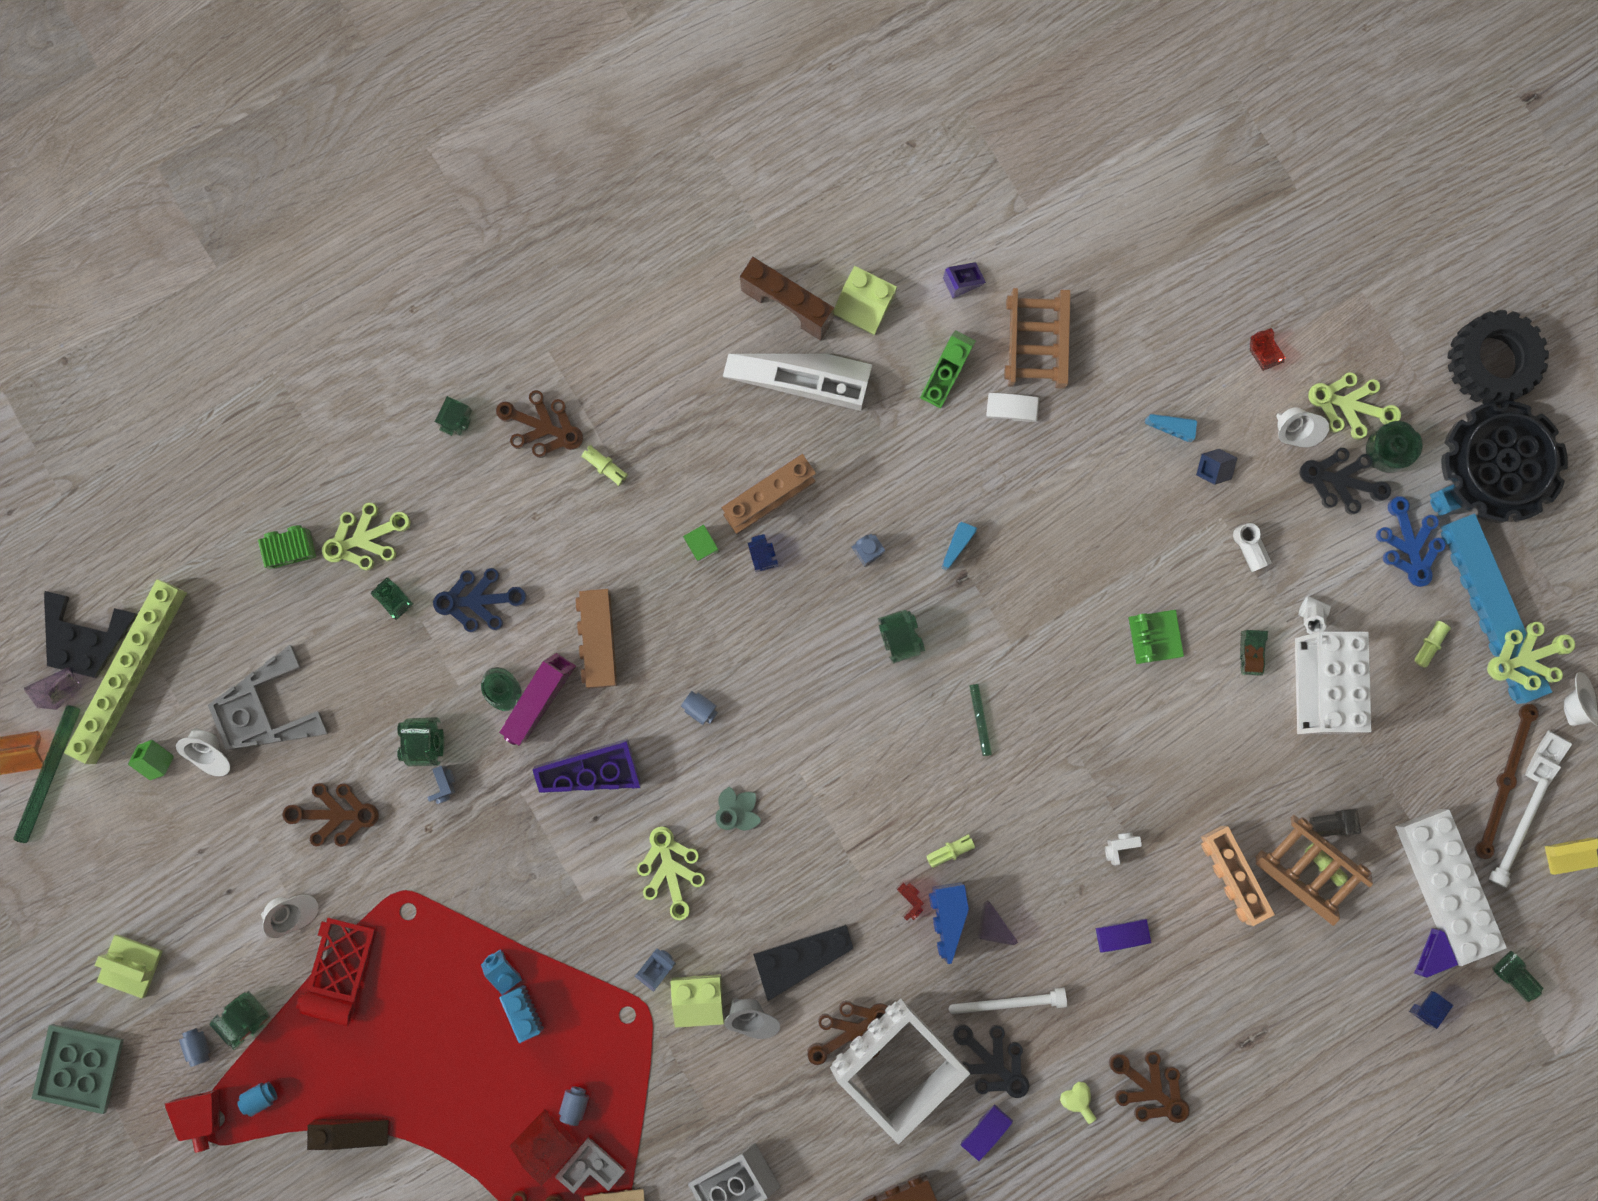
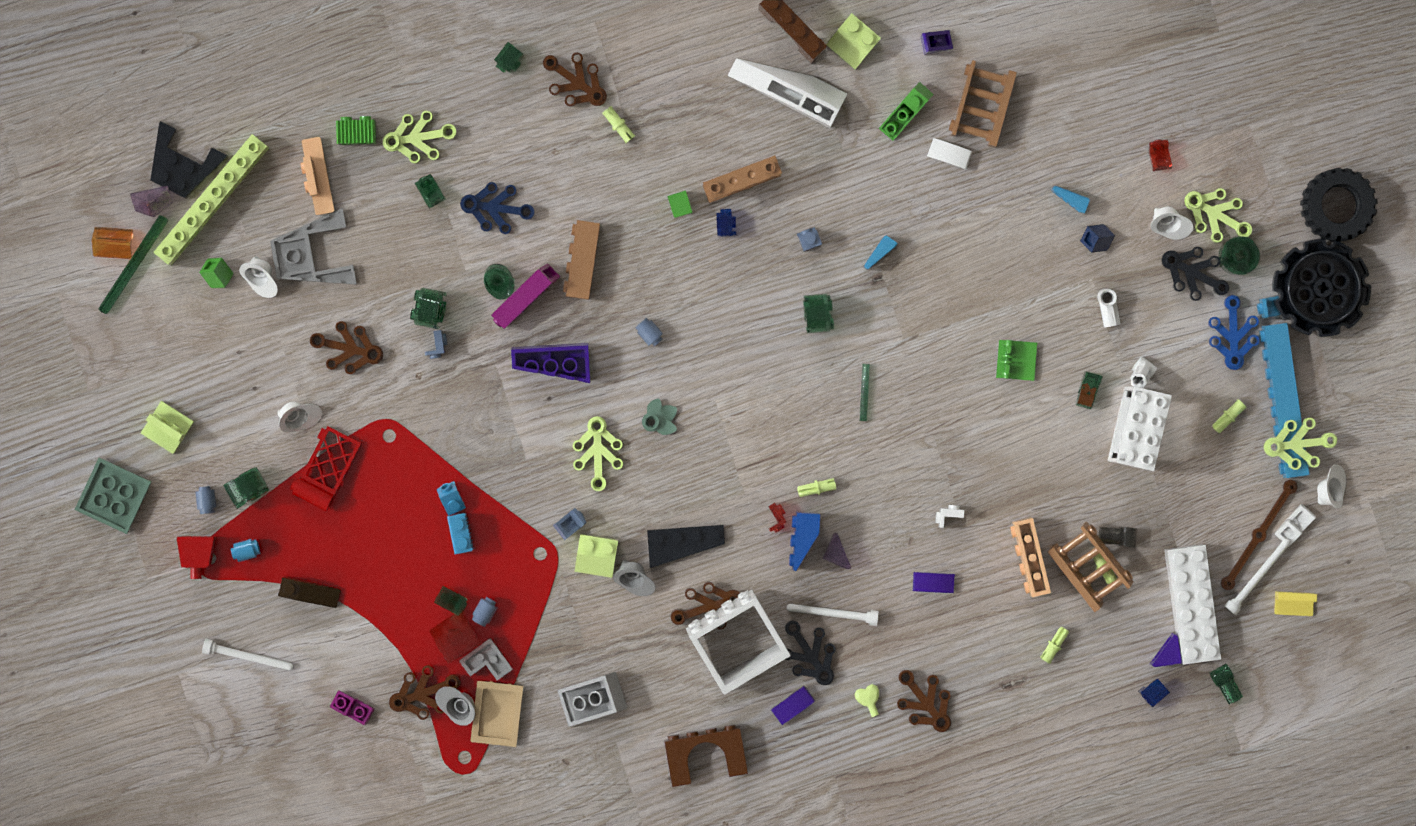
camera: 10 degrees right, 5 degrees up
(249, 613) = (317, 176): none -> light nougat bracket
(528, 1102) = (451, 600): none -> bracket
(1293, 978) = (1054, 645): none -> yellowish green axle

